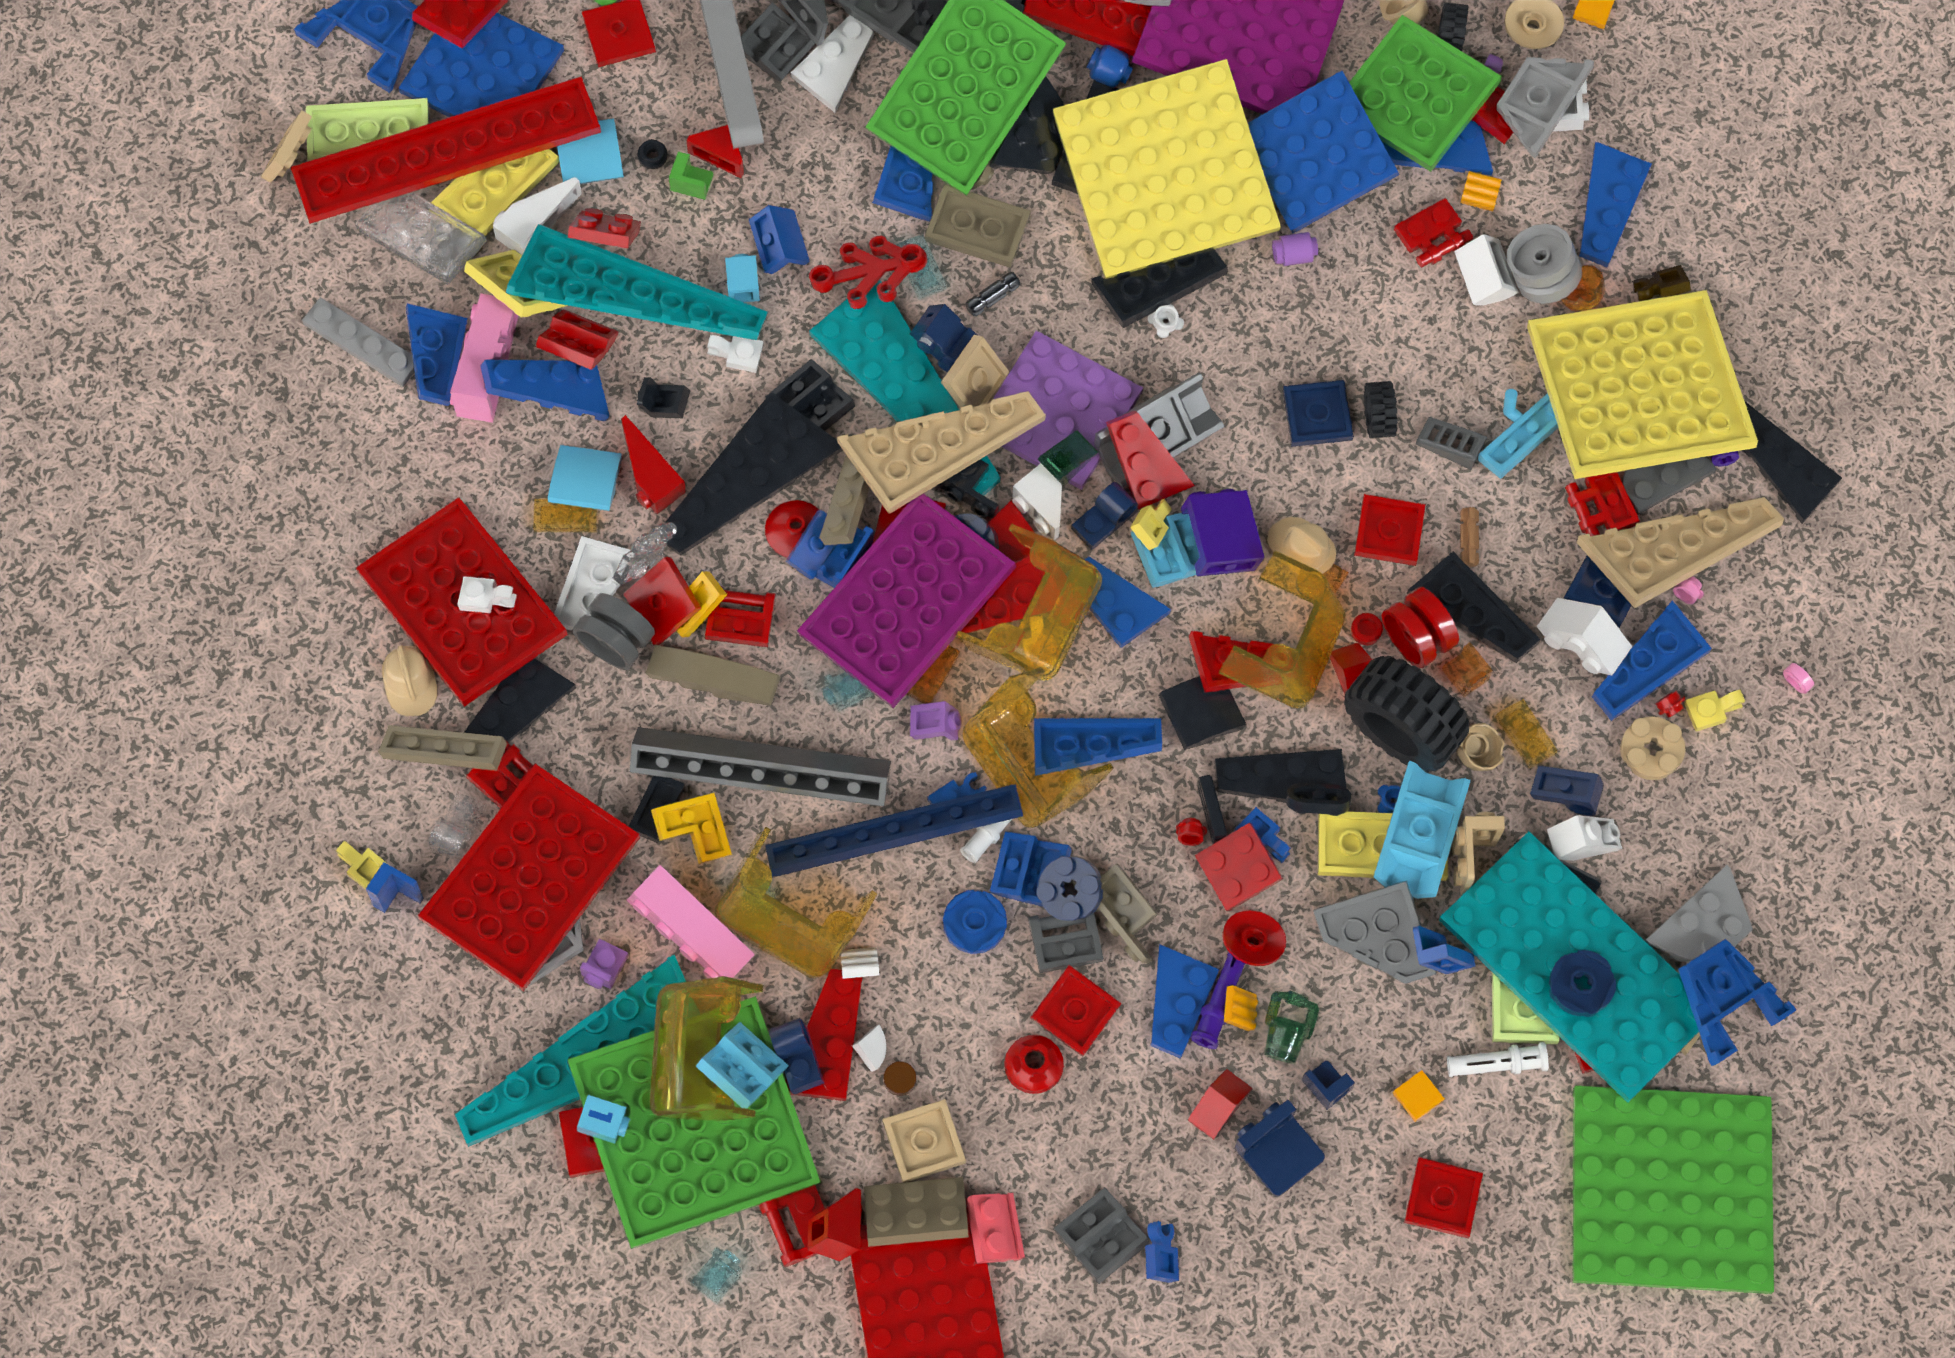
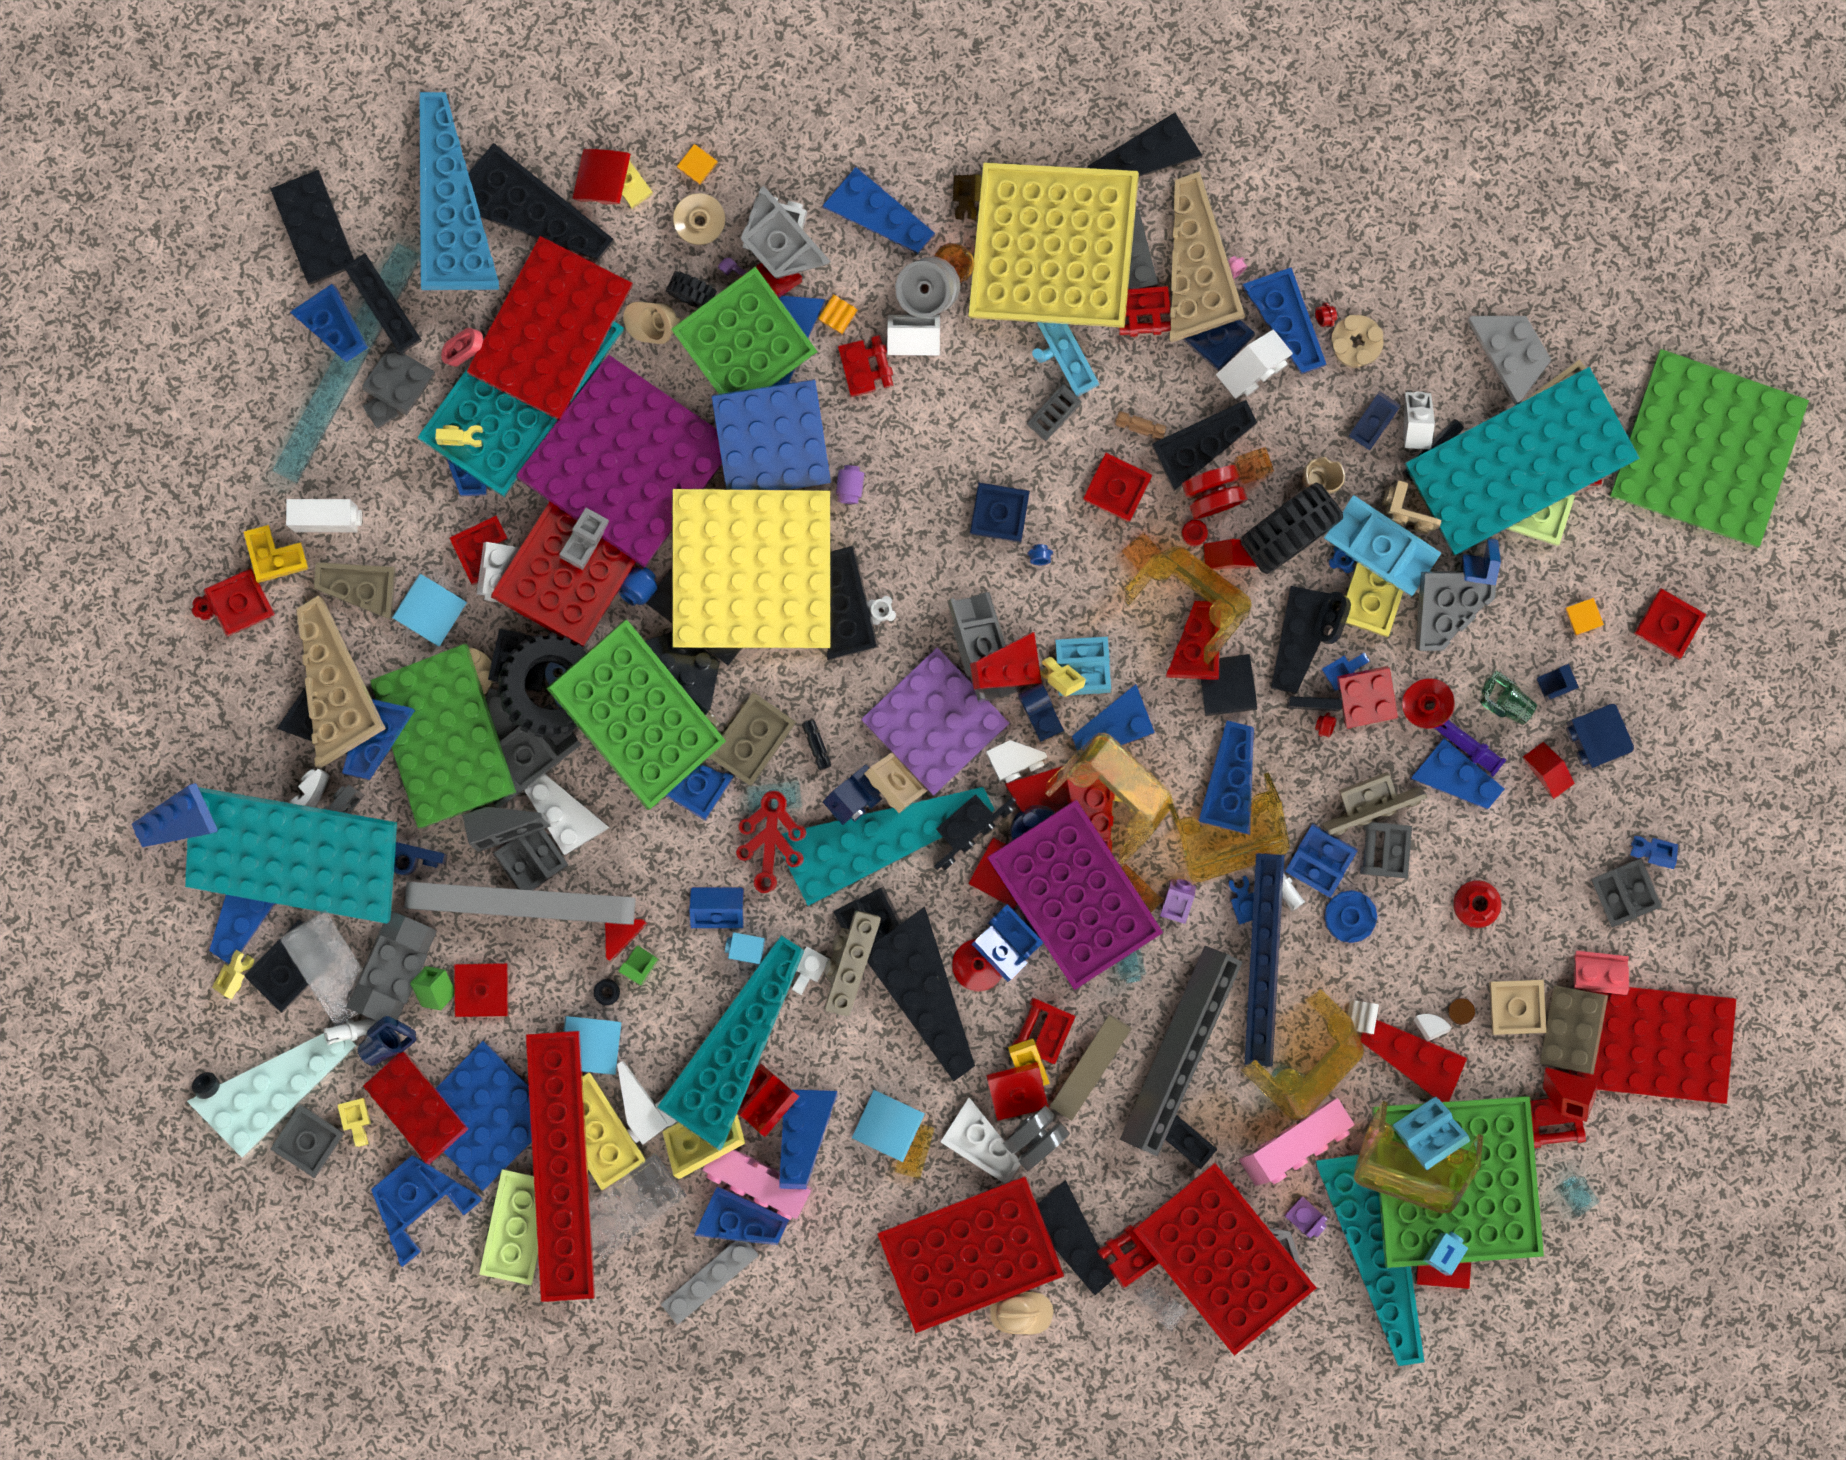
camera: 70 degrees left, 15 degrees up
(288, 146) = (515, 1298): tan plate -> none
(362, 866) = (1176, 1385): light yellow plate -> none
(388, 883) = (1197, 1366): blue panel -> none
(442, 747) = (1096, 1301): dark tan plate -> none
(482, 593) = (975, 1238): white plate -> none
(604, 229) = (671, 1051): red plate -> none
(644, 553) = (977, 1094): clear plate -> none
(654, 477) = (901, 1071): red slope -> none
(662, 400) = (836, 1043): black bracket -> none
(699, 818) = (1210, 1111): yellow plate -> none
(757, 383) = (849, 962): none -> dark tan bracket
(796, 1049) = (1424, 1086): dark blue plate -> none
(845, 506) = (965, 911): dark tan plate -> none
(929, 449) = (956, 847): tan wing -> none
(1052, 890) = (1357, 849): plate -> none
(1068, 457) = (990, 729): clear green slope -> none
(1075, 1010) = (1446, 859): red plate -> none
(1224, 532) = (1084, 621): dark purple panel -> none
(1240, 1008) = (1480, 731): light orange piece -> none
(1284, 468) = (1040, 555): none -> blue plate
(1303, 543) = (1109, 562): tan piece -> none
(1380, 409) = (1016, 462): black tyre -> none
(1458, 1064) = (1578, 534): white pin -> none
(1526, 733) = (1317, 436): clear yellow plate -> none
(1599, 976) = (1542, 479): dark blue plate -> none
(1709, 710) = (1338, 287): light yellow plate -> none
(1718, 985) = (1573, 361): blue wing -> none
(1798, 678) = (1334, 208): bright pink tile -> none

